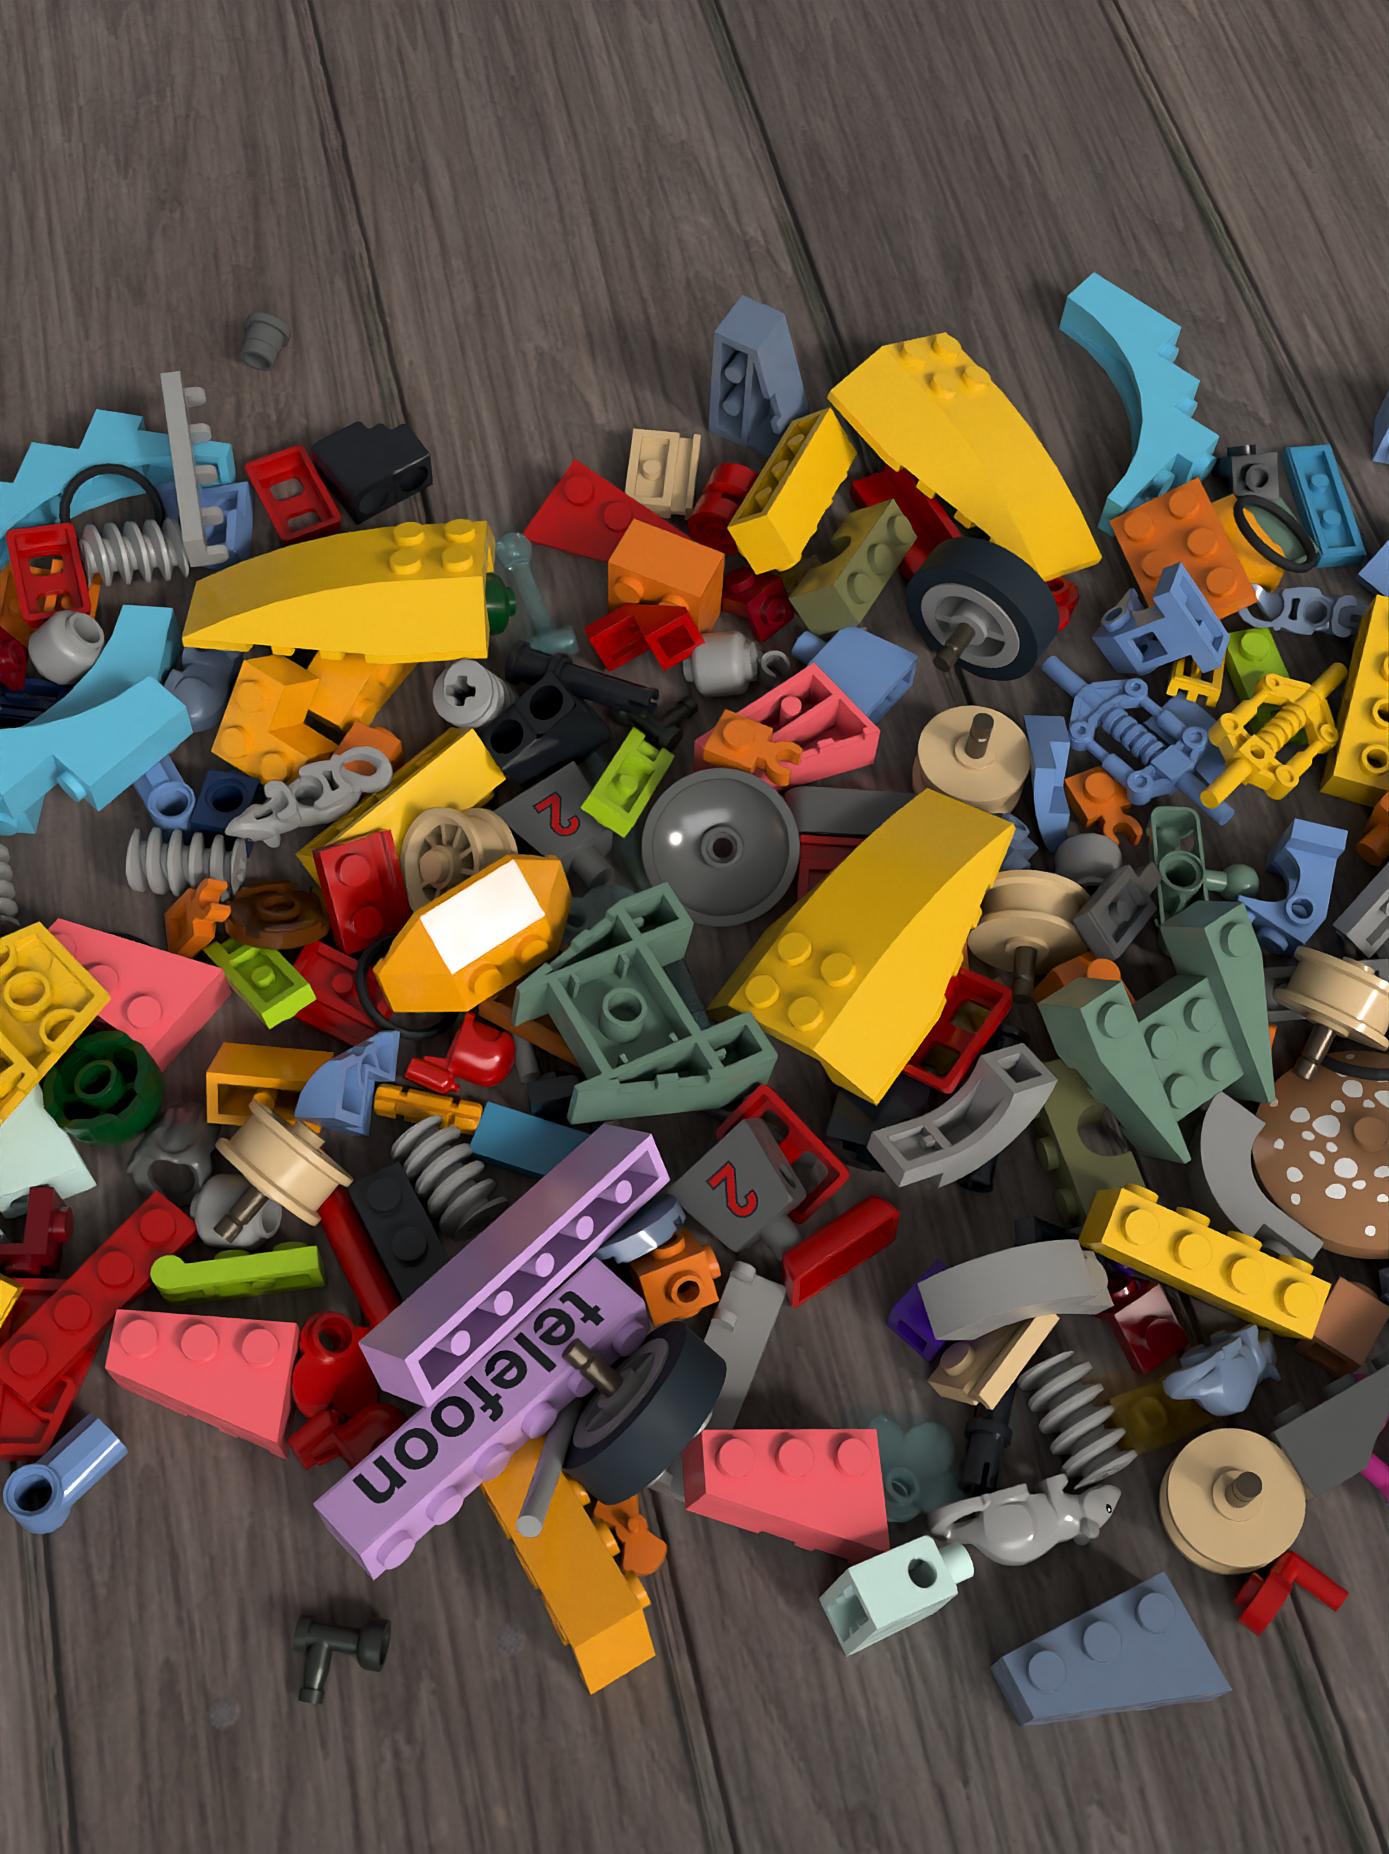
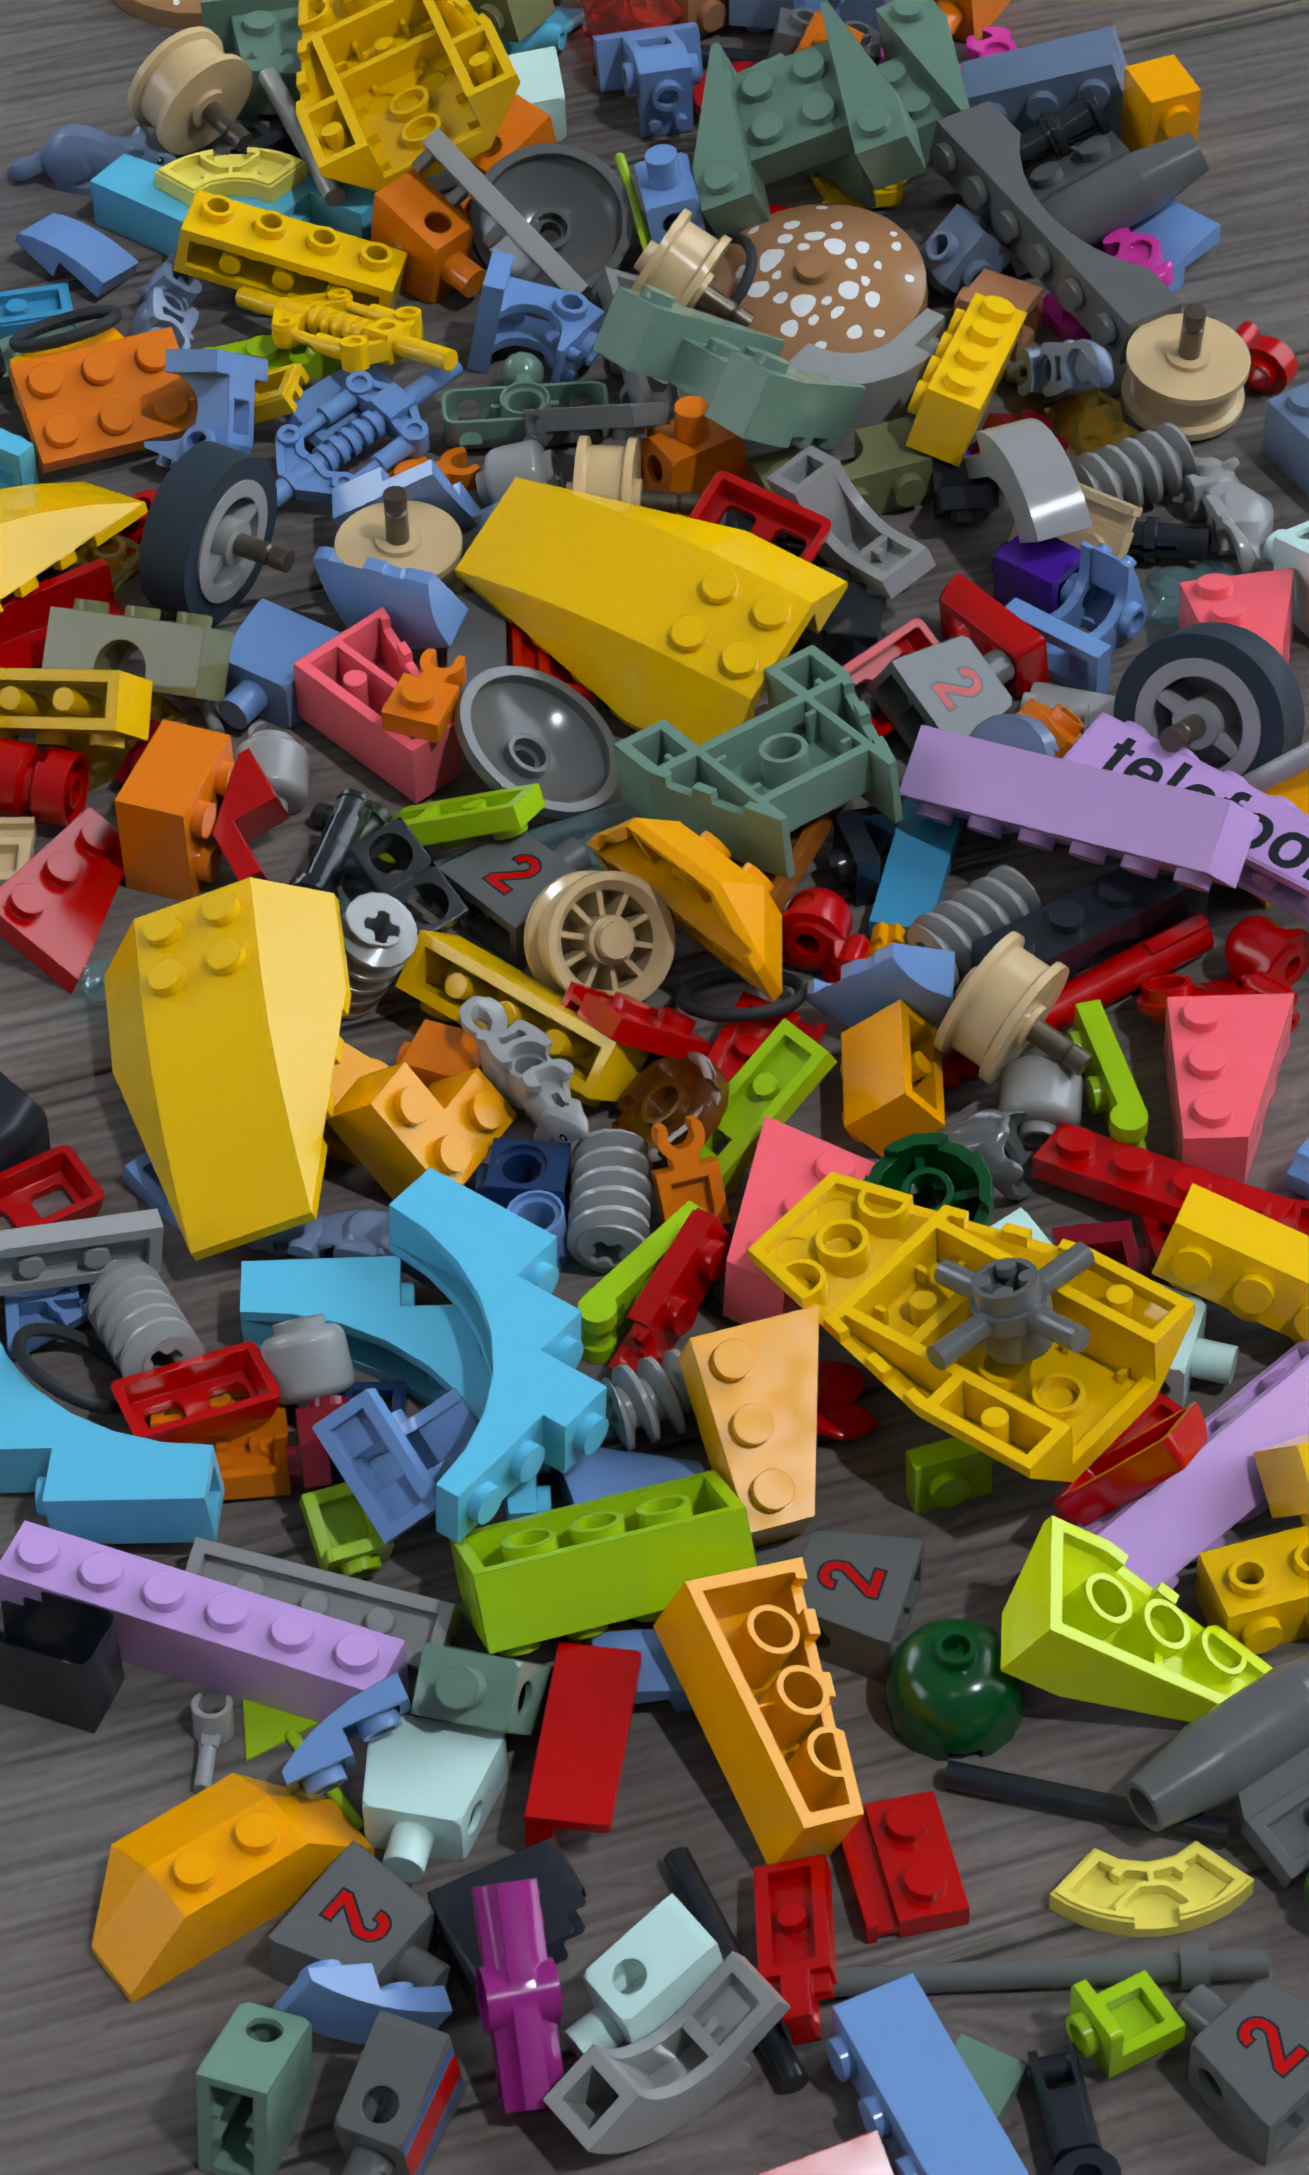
camera: 90 degrees left, 15 degrees down
(69, 895) = (675, 1289): none -> red hinge
(104, 881) = (612, 1298): none -> lime plate
(834, 1321) = (1099, 598): none -> medium blue tile
(886, 761) = (416, 600): none -> medium blue slope

